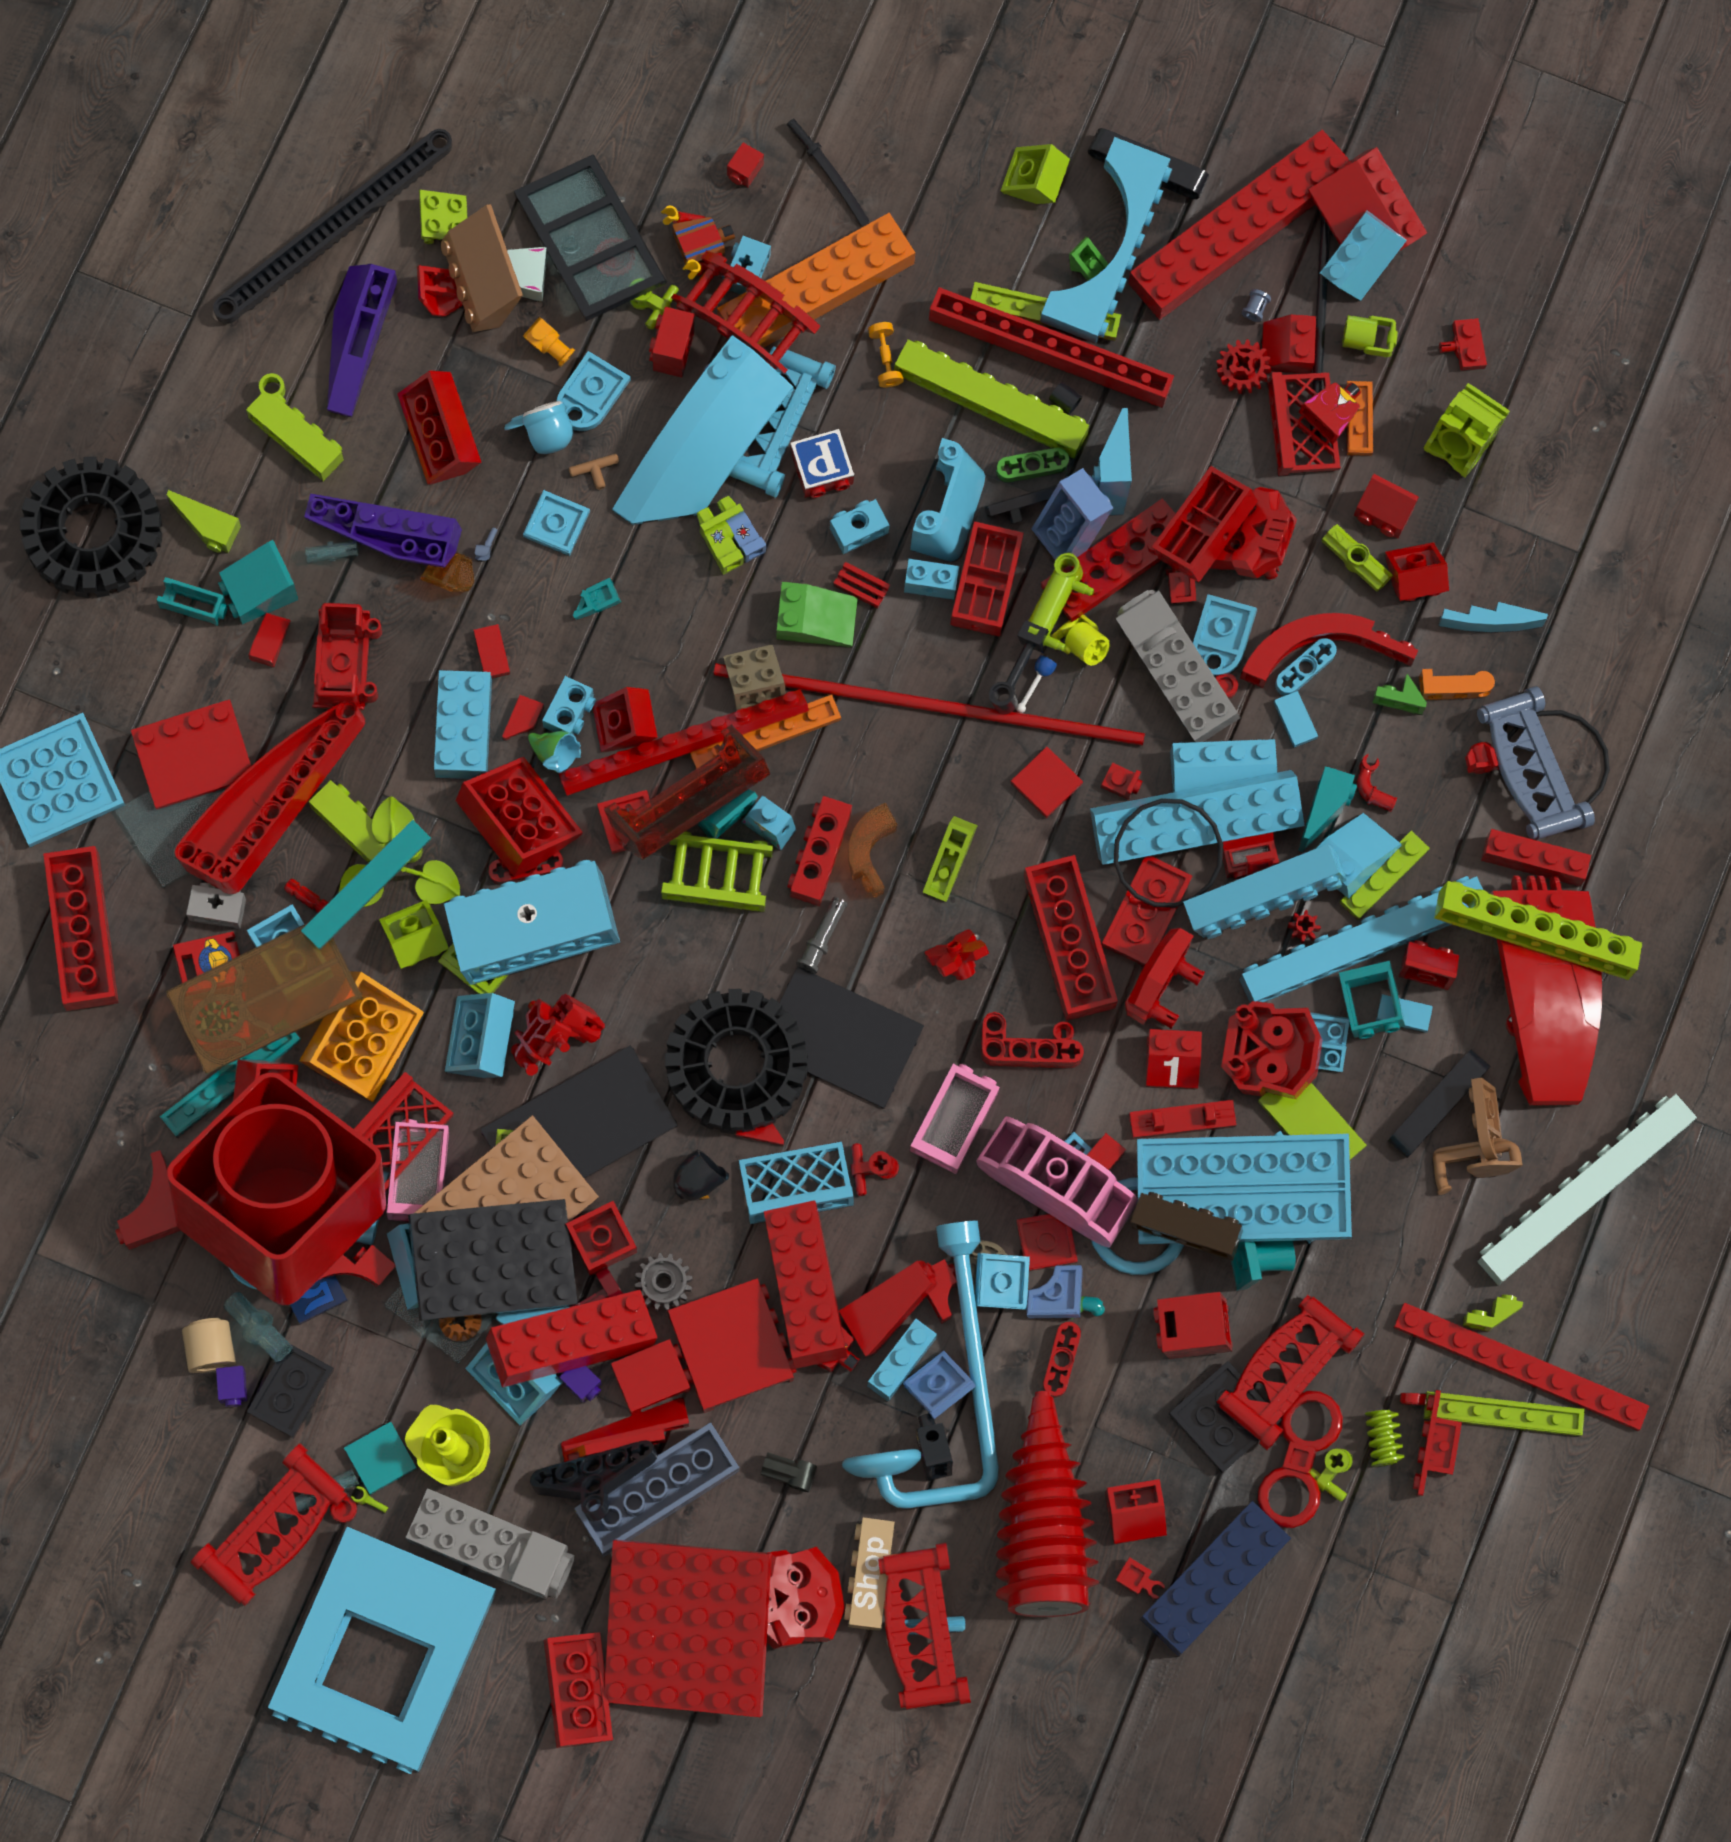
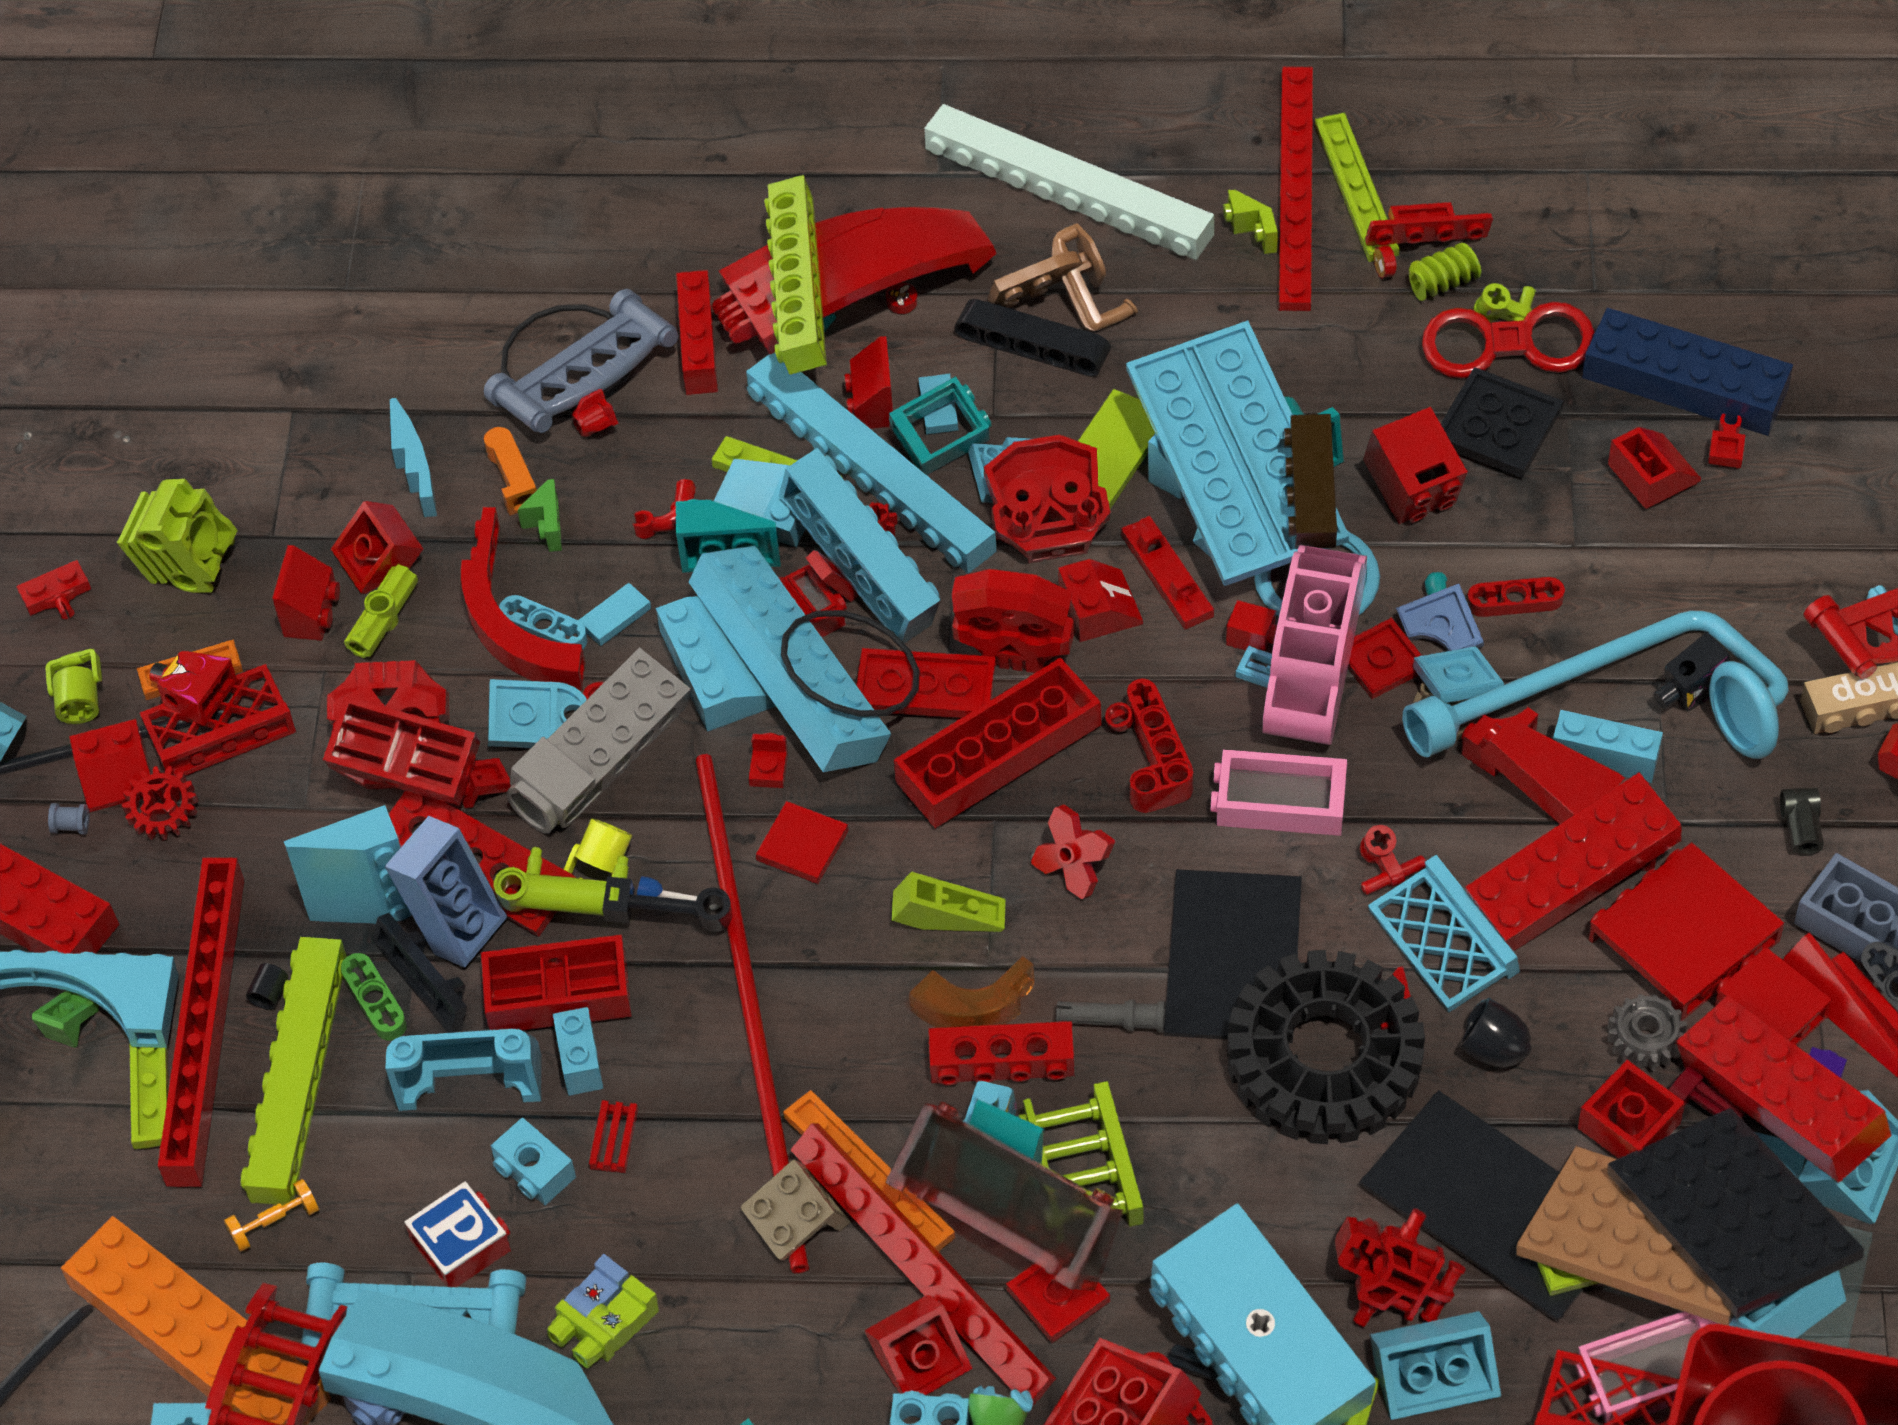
camera: 100 degrees left, 20 degrees down
(815, 615) = (680, 1175): bright green slope -> none
(939, 1384) = (1616, 692): medium blue tile -> none
(1046, 1524) = (1729, 519): red cone -> none
(1261, 1417) = (1351, 352): red piece -> none

